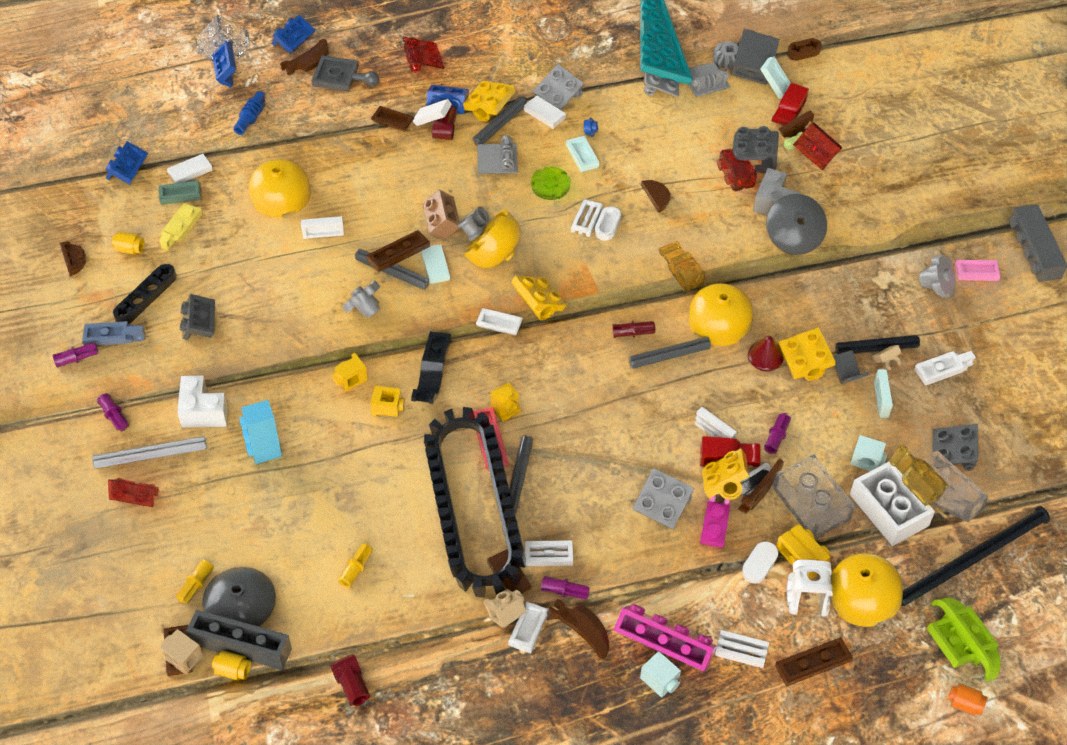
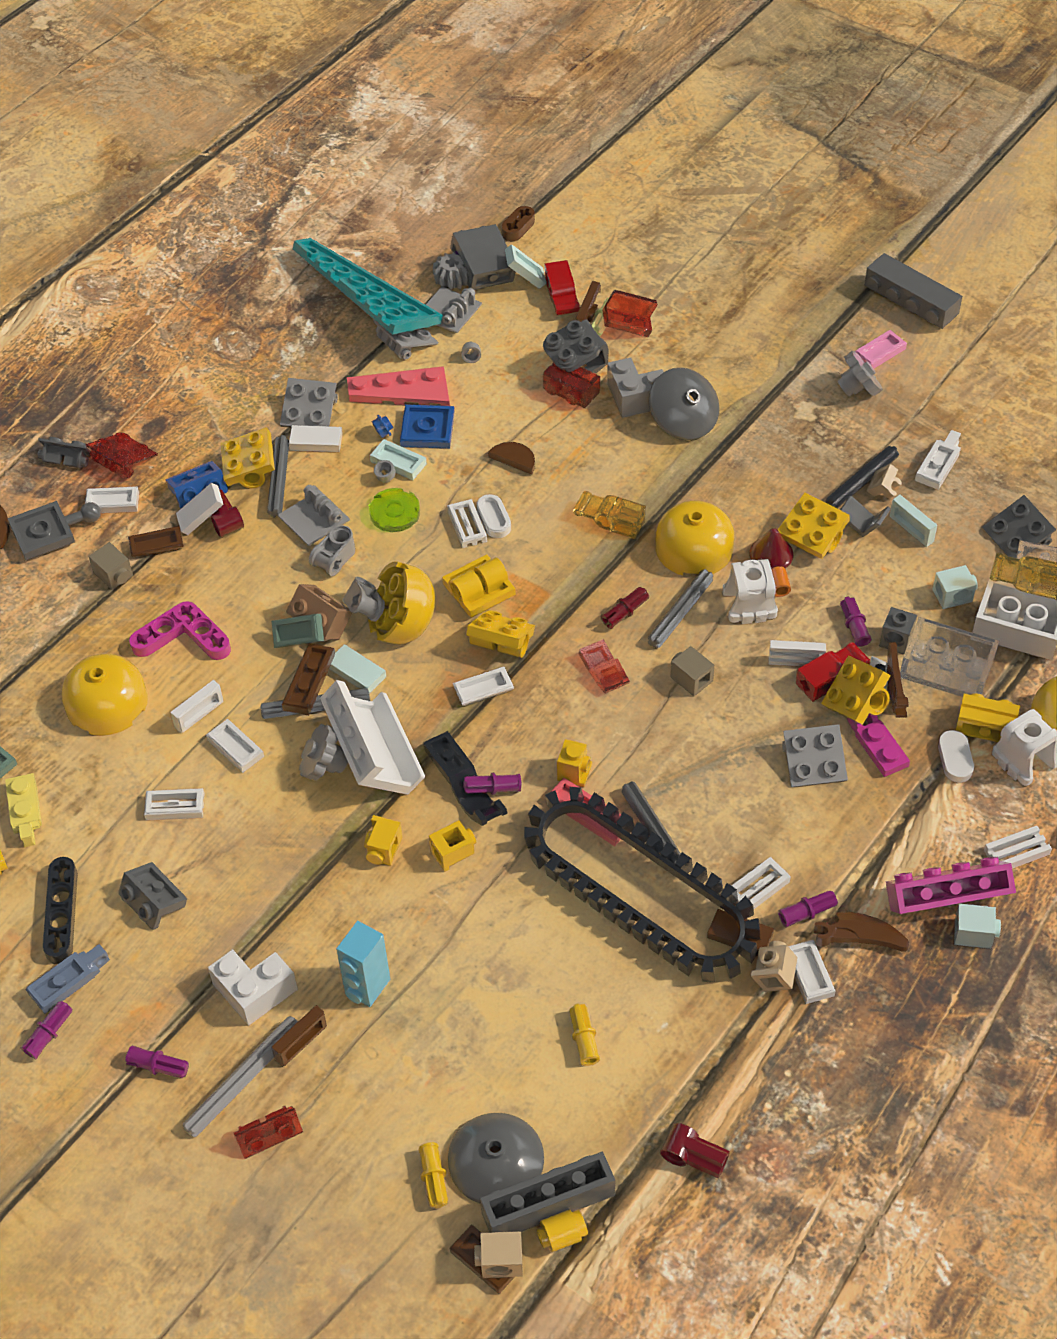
camera: 35 degrees left, 0 degrees up
(197, 451) = (299, 1036): none -> reddish brown tile
(257, 278) = (174, 808): none -> white tile
(324, 264) = (235, 745): none -> white tile
(352, 116) = (110, 566): none -> dark tan brick
(360, 175) = (181, 624): none -> dark pink beam
(386, 33) = (55, 448): none -> dark grey hinge
(393, 80) = (114, 499): none -> white tile
(395, 309) = (372, 740): none -> white panel
(417, 218) = (297, 630): none -> sand green tile
(445, 382) = (492, 783): none -> magenta axle
(489, 184) = (333, 550): none -> light grey piece
(554, 259) = (479, 585): none -> yellow plate
(565, 151) = (388, 467): none -> light grey hinge
(584, 357) = (603, 667): none -> clear red slope
(620, 144) = (427, 426): none -> blue tile
(635, 114) = (416, 385): none -> coral wing
(636, 394) = (692, 670): none -> dark tan brick
(691, 118) = (475, 353): none -> light grey hinge
(719, 367) = (754, 592): none -> white piece
(751, 376) = (781, 581): none -> orange hinge
(796, 451) = (898, 628): none -> dark grey brick

